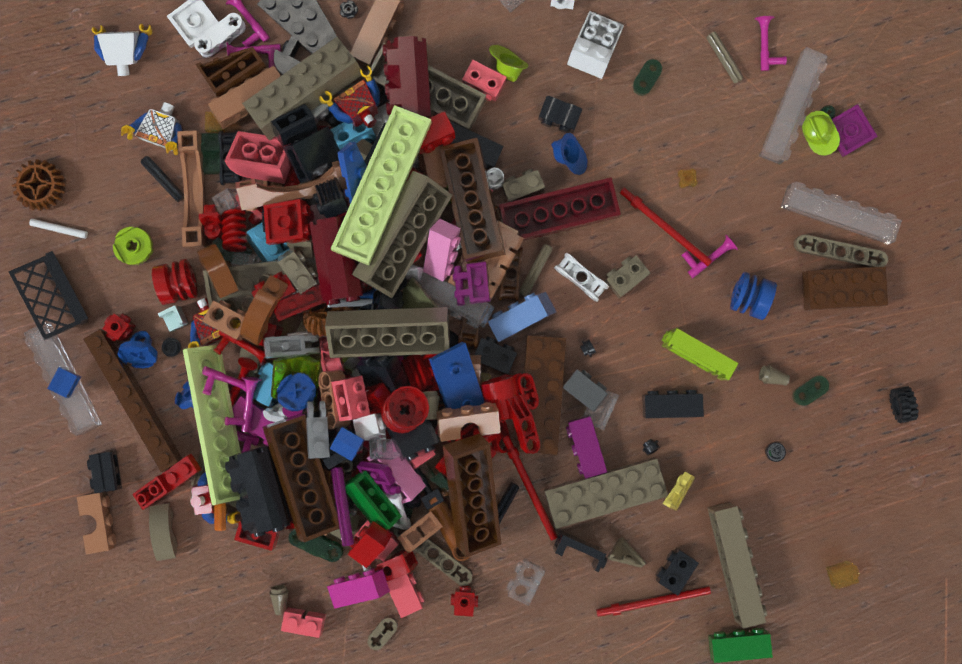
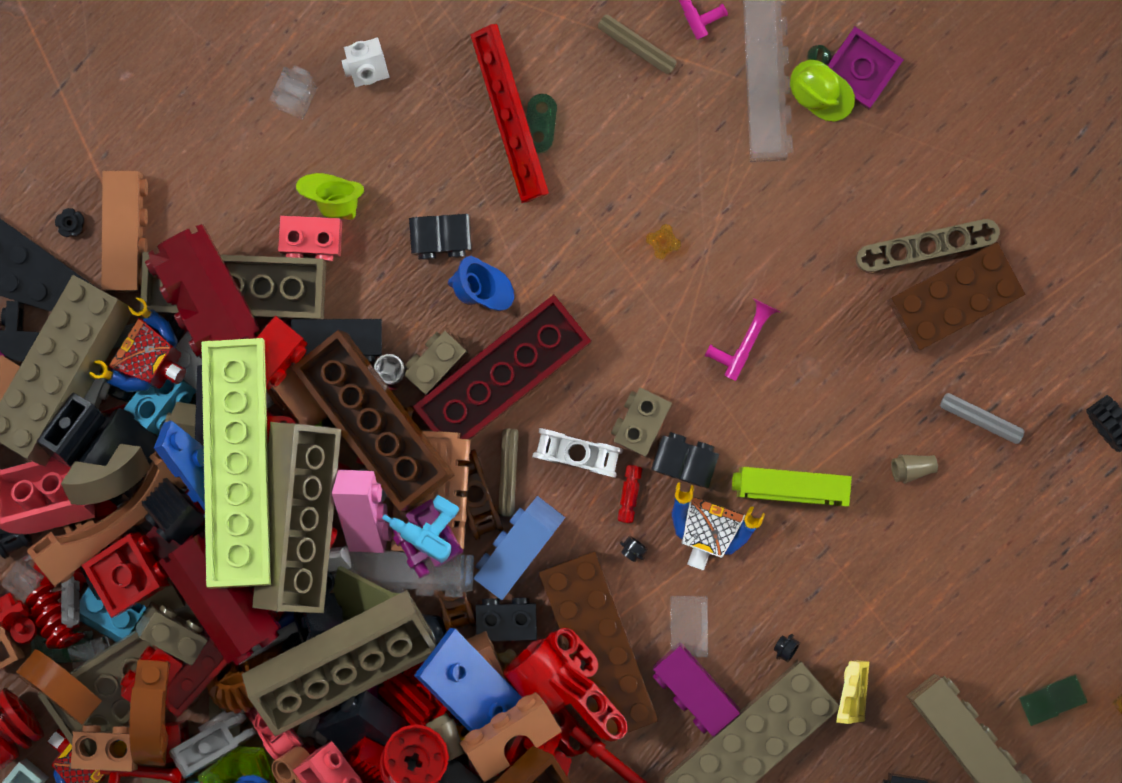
camera: 25 degrees left, 0 degrees up
(247, 225) = (70, 602): none -> light grey axle
(296, 162) = (97, 483): none -> dark tan brick
(474, 282) = (427, 538): none -> medium azure piece
(586, 390) = (657, 611): dark grey brick -> none
(595, 44) = (444, 111): white slope -> none
(600, 315) = (629, 494): none -> red axle
(632, 62) = (509, 113): none -> red tile
(637, 202) = (608, 309): red bar -> none
(639, 356) = (710, 527): none -> torso
(642, 311) = (684, 460): none -> black brick
(672, 404) = (789, 574): black brick -> none
(749, 294) = (830, 368): blue wheel -> none
(775, 452) = (965, 572): tile -> none
(793, 549) = (1053, 699): none -> clear green slope
(810, 391) = (975, 464): clear green plate -> none
(826, 366) = (982, 418): none -> light grey axle
(841, 213) = (902, 192): clear brick -> none

